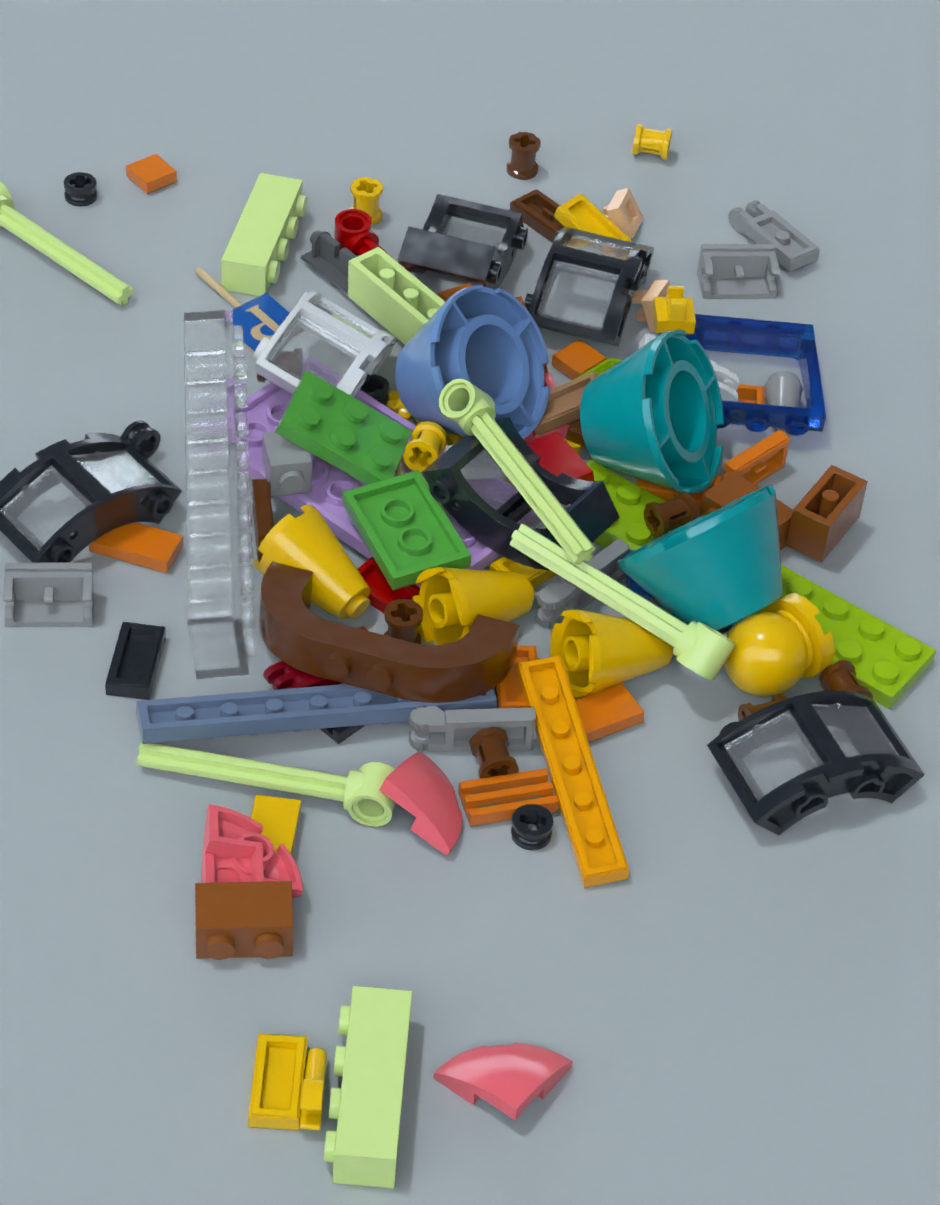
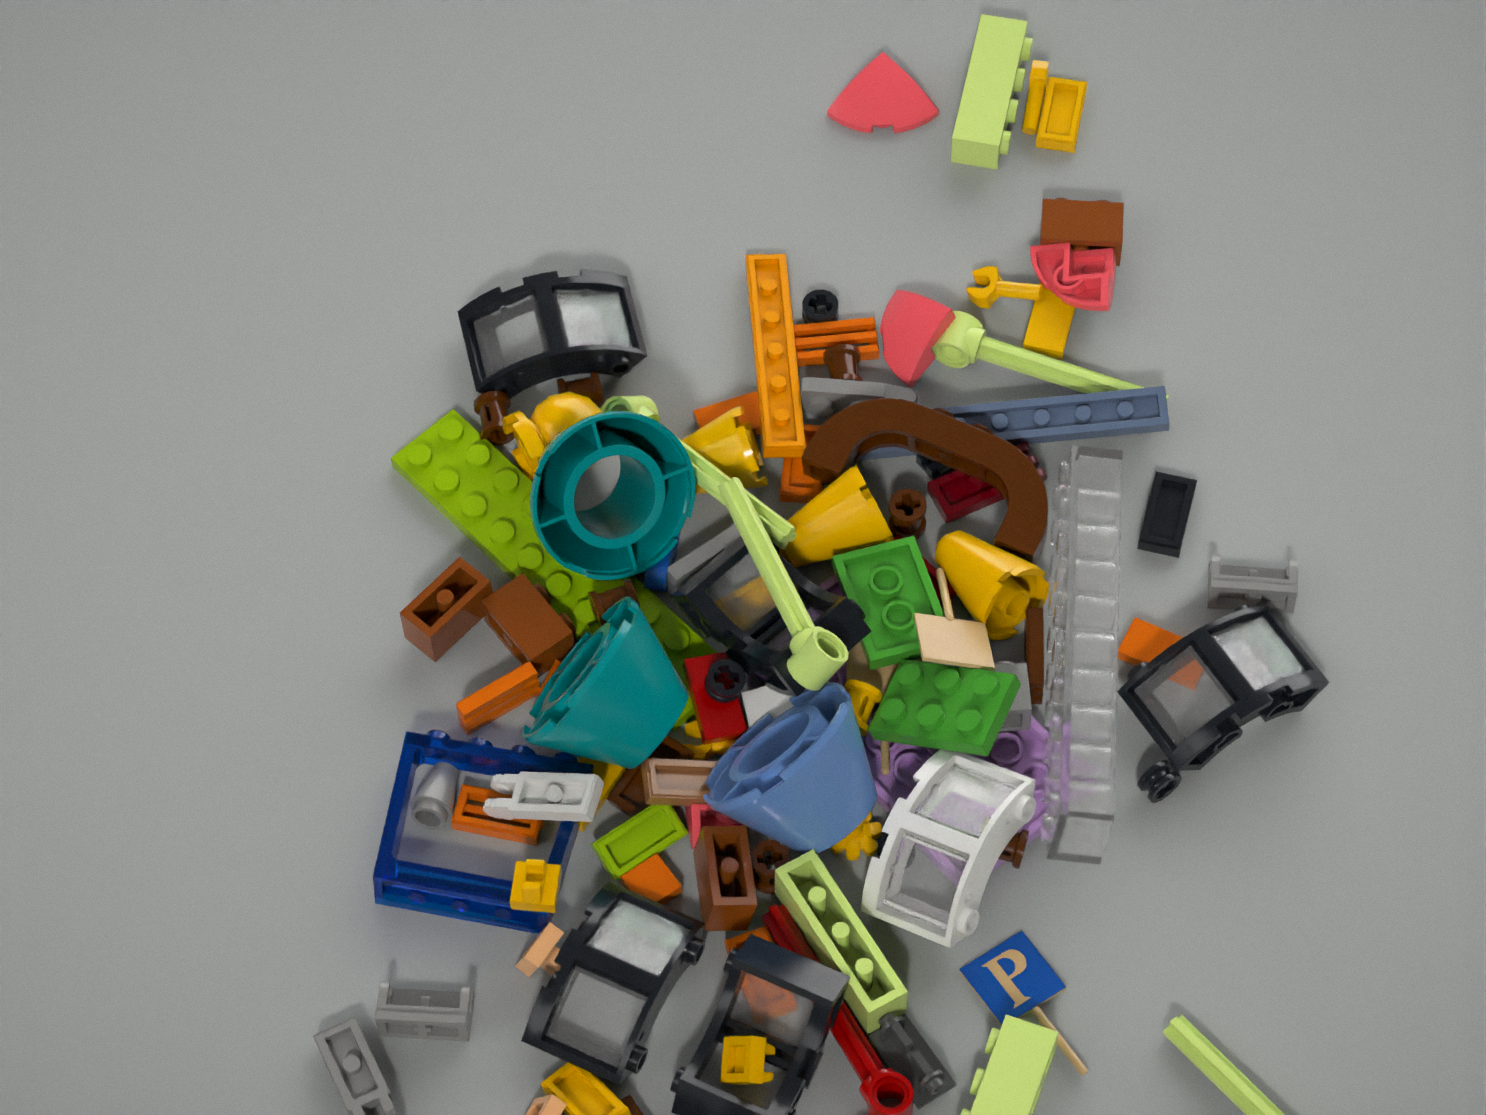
camera: 165 degrees left, 15 degrees up
(335, 857) = (998, 288): none -> yellow bar
(343, 475) = (952, 639): none -> tan piece
(471, 227) = (744, 1060): none -> yellow tile
(553, 456) = (733, 672): none -> black bush

